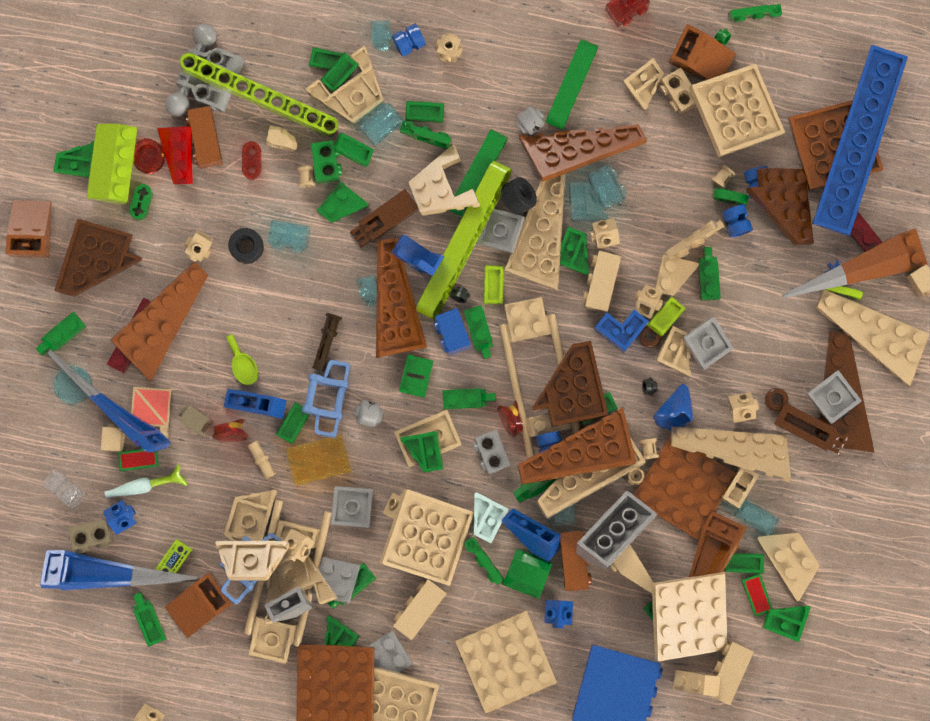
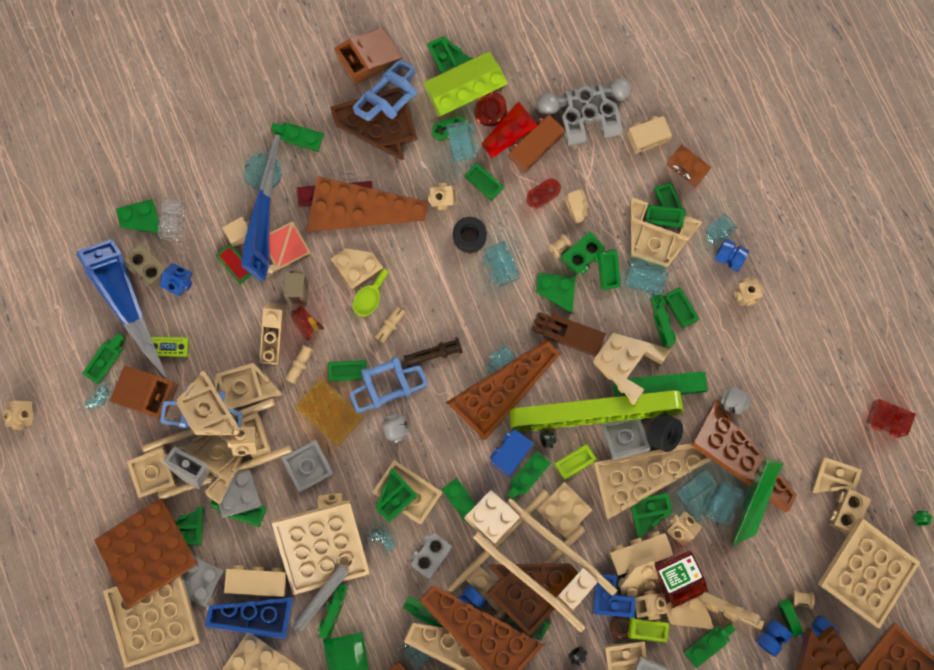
camera: 50 degrees right, 5 degrees down
(42, 514) = (139, 216): none -> green wing
(83, 245) = (380, 103): none -> medium blue bar
(144, 484) = (216, 282): light aqua piece -> none
(160, 199) = (461, 141): none -> clear light blue brick
(179, 645) = (100, 397): none -> clear light blue arm
(207, 203) = (484, 181): none -> green tile
(209, 358) = (356, 266): none -> tan plate
(219, 465) = (272, 332): none -> tan slope
(252, 87) = (603, 153): lime beam -> none
(255, 403) = (342, 328): blue slope -> none
(260, 37) = (649, 134): none -> tan brick
(278, 362) = (389, 325): none -> tan pin
(309, 23) = (688, 165): none -> dark orange brick
(413, 385) = (463, 445): green piece -> none
(417, 256) = (556, 380): blue panel -> none
(450, 482) = (382, 536): none -> clear light blue arm
(451, 624) = (258, 618): none -> blue wedge
(467, 563) = (321, 597): none -> light grey axle
(487, 517) = (373, 588): light aqua wing -> none
(496, 382) = (494, 517): none -> tan plate
(510, 419) = (469, 553): clear red piece -> none
(535, 536) = (382, 638): blue slope -> none
(571, 84) = (790, 415): green beam -> none
(622, 159) = (757, 500): none -> green wedge
(622, 295) = (640, 578): none -> tan plate
(643, 263) = (681, 579): none -> slope
(701, 54) = (894, 509): dark orange slope -> none

